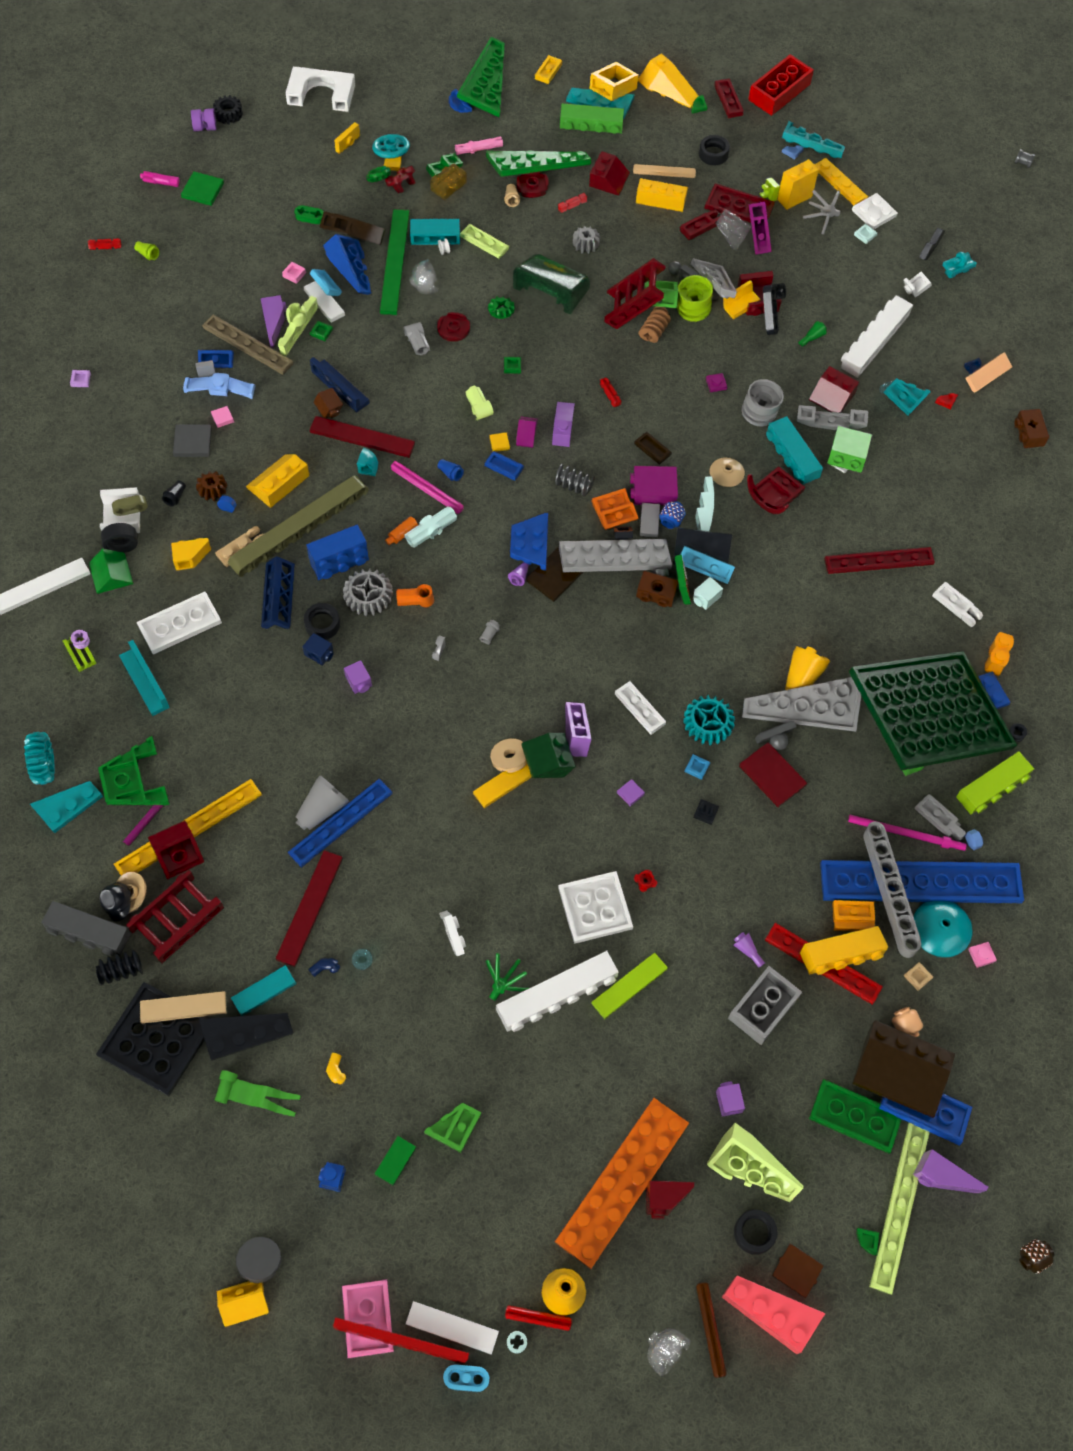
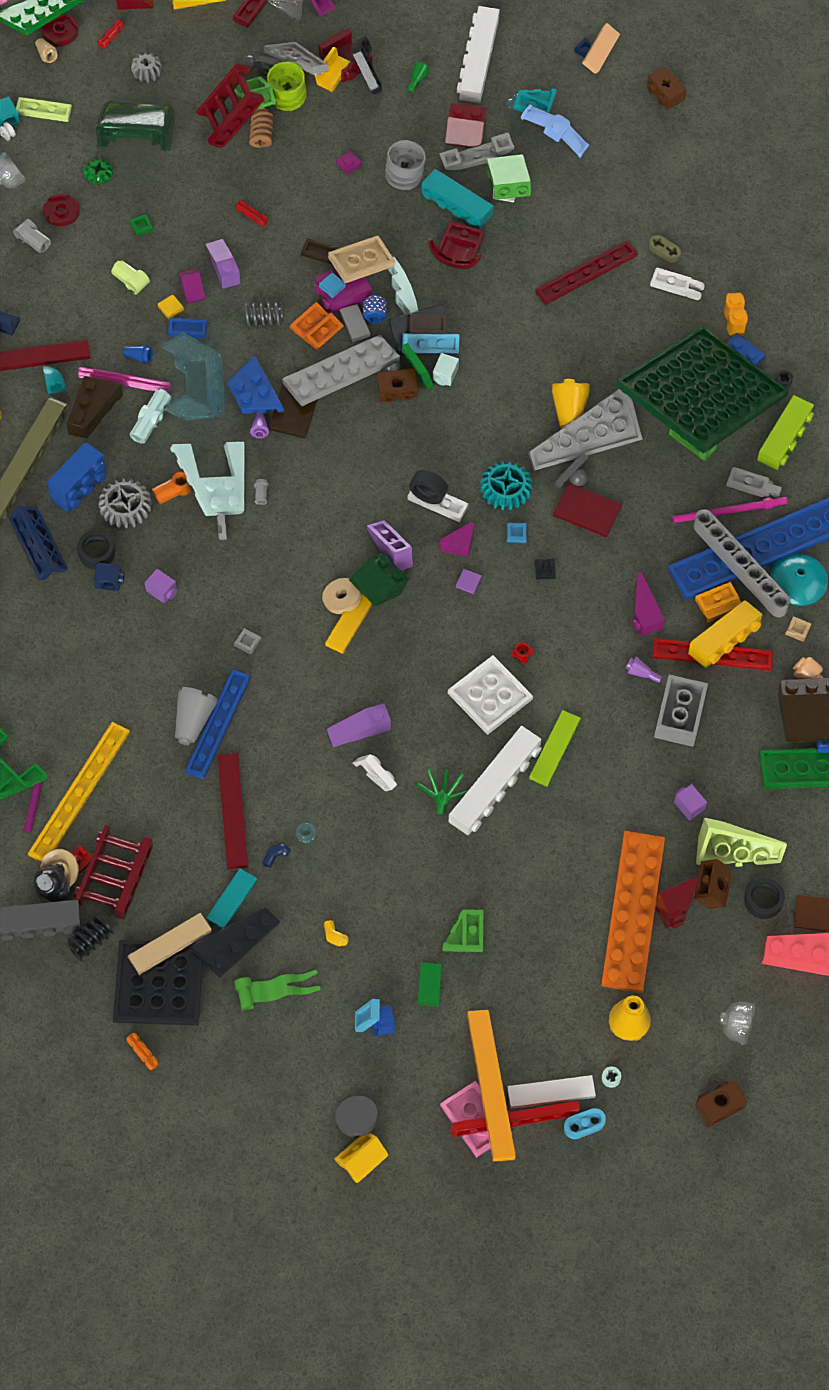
camera: 25 degrees left, 0 degrees up
(106, 1097) = (142, 1051): none -> orange axle
(154, 889) = (83, 858): none -> red tile
(176, 849) = (81, 812): dark red slope -> none
(318, 1165) = (367, 1015): none -> medium azure tile
(385, 496) = (91, 405): none -> dark brown wedge
(392, 1298) = (491, 1086): none -> light orange tile
(399, 532) = (123, 432): orange cylinder -> none
(406, 759) = (247, 641): none -> light grey tile
(451, 618) = (216, 494): none -> light aqua wing
(462, 882) = (360, 725): none -> medium lavender slope
(493, 515) = (203, 379): none -> clear light blue windscreen
(538, 1318) = (619, 1050): red axle -> none
(622, 1426) = (714, 1113): none -> reddish brown brick
(623, 533) = (337, 345): black plate -> none
(635, 691) = (428, 487): none -> black tyre
(640, 752) = (458, 541): none -> magenta slope
(644, 479) = (332, 285): none -> dark azure tile
(680, 466) = (361, 259): none -> tan plate
(710, 546) = (427, 323): none -> dark brown tile
(711, 1193) = (713, 884): none -> reddish brown brick
(711, 1330) = (766, 991): reddish brown axle -> none
(726, 477) = (404, 252): tan dish -> none
(779, 895) = (646, 611): none -> magenta slope
(914, 424) = (556, 128): none -> light blue plate
(946, 400) = (575, 91): red tile -> none
(961, 568) = (664, 249): none -> olive beam
(974, 839) = (790, 490): medium blue tile -> none

